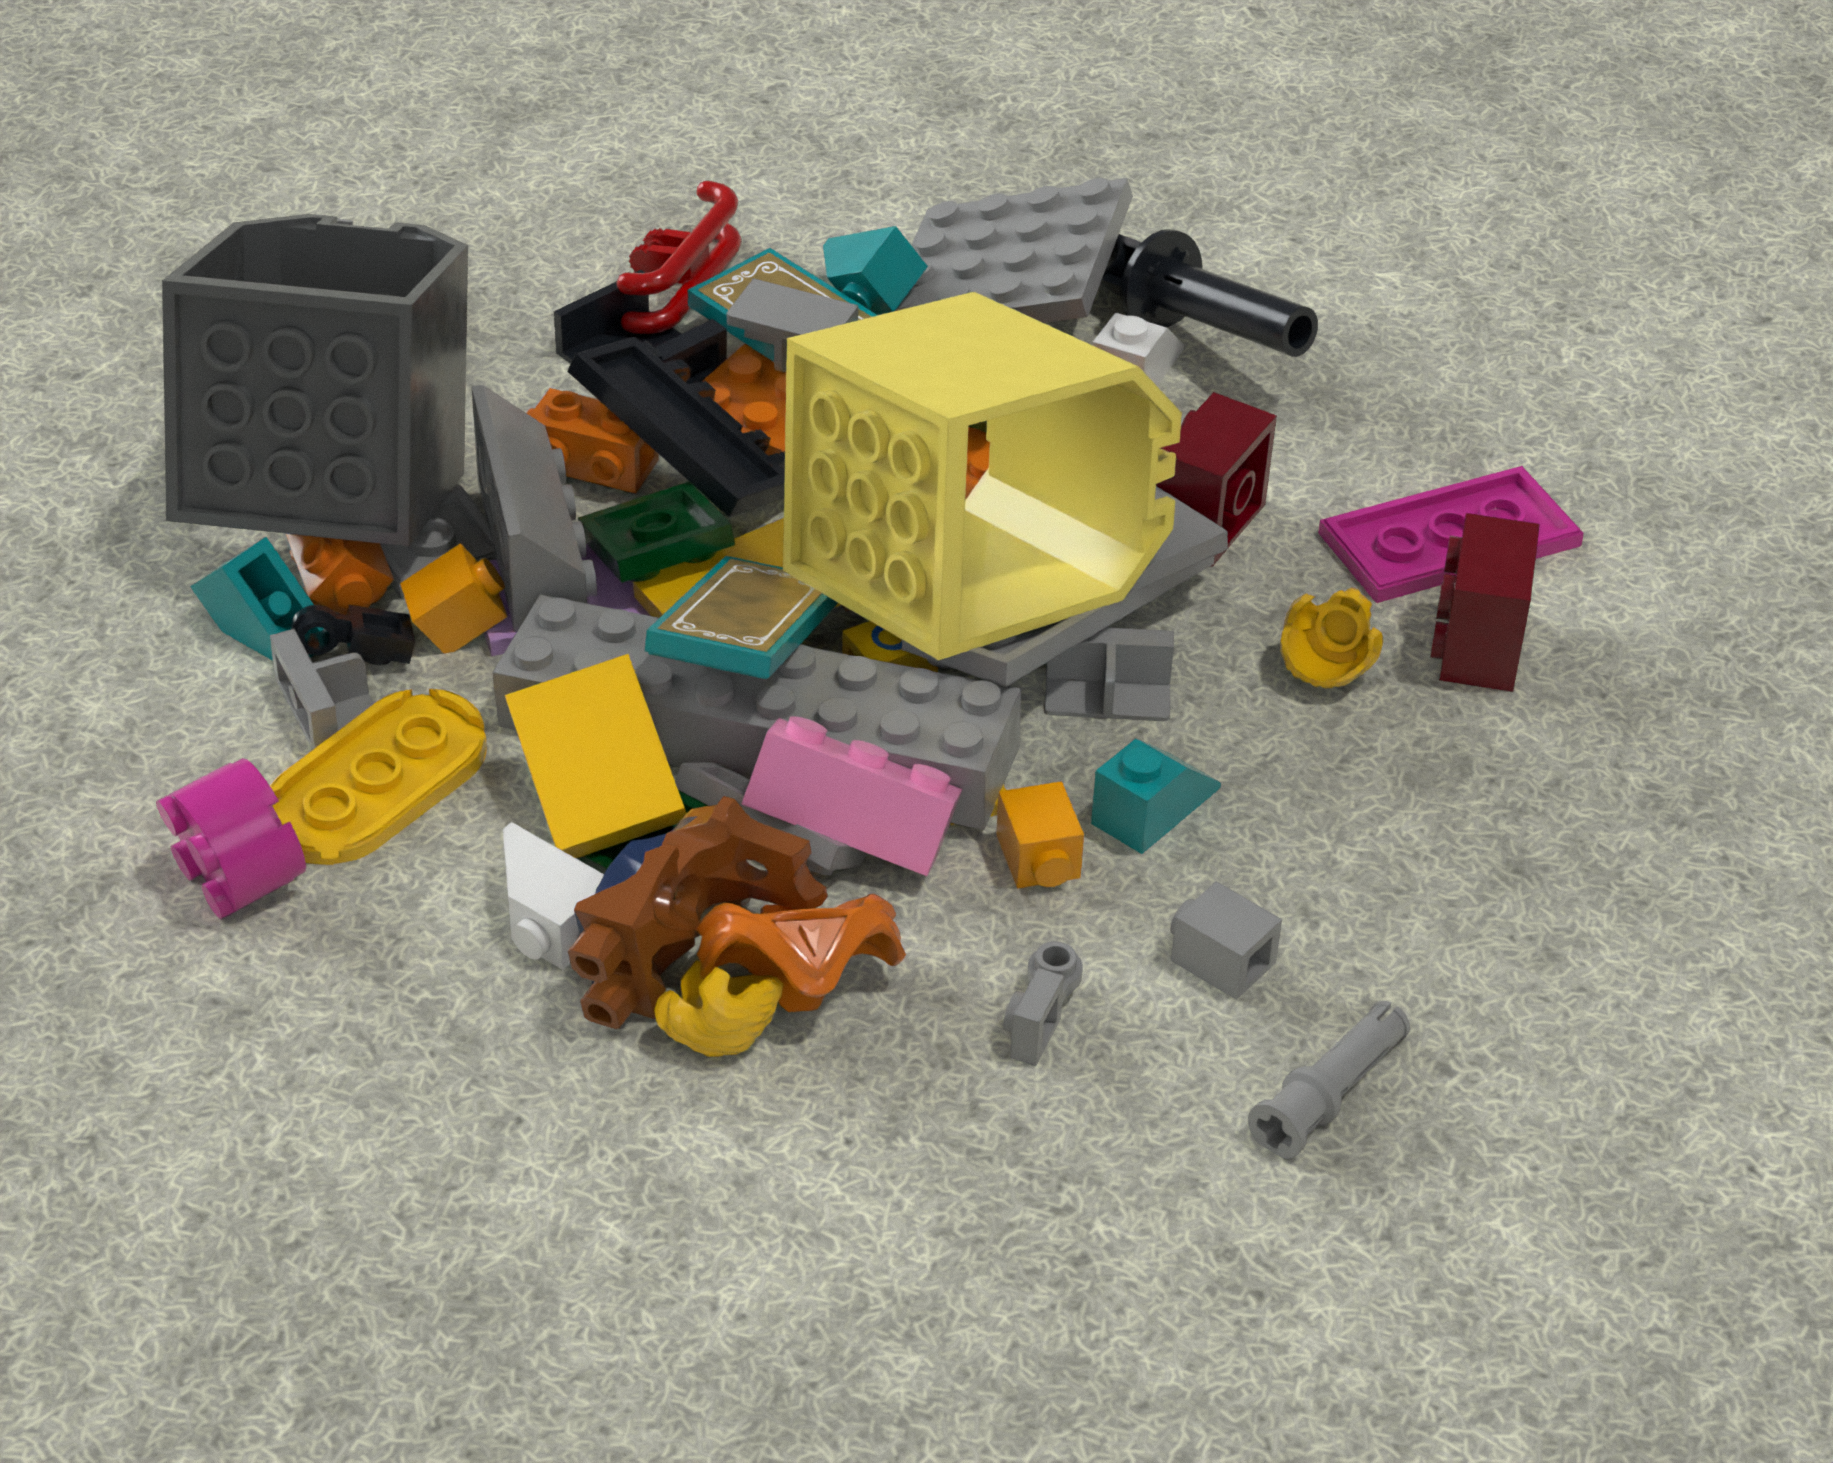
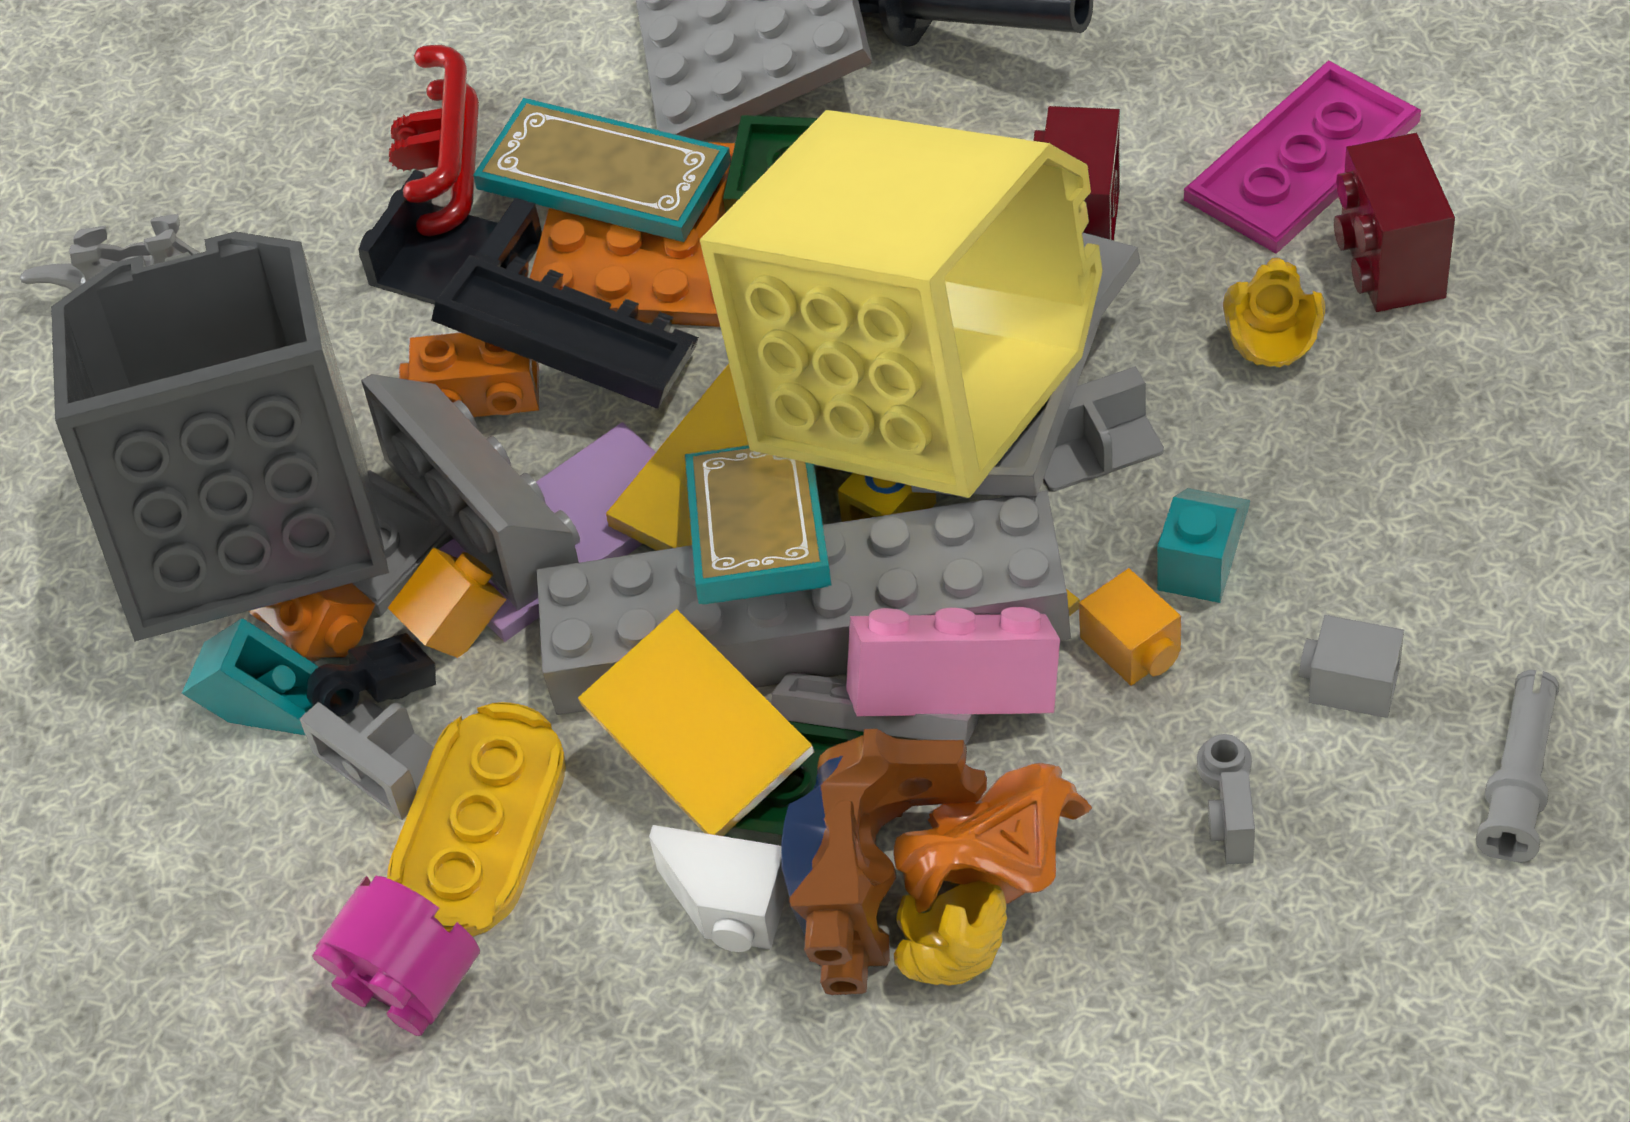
camera: 15 degrees left, 10 degrees up
(657, 532) = (603, 453): dark green plate -> none
(779, 312) = (610, 176): light grey panel -> none
(873, 267) = (634, 83): teal slope -> none
(1140, 343) = (921, 84): white slope -> none

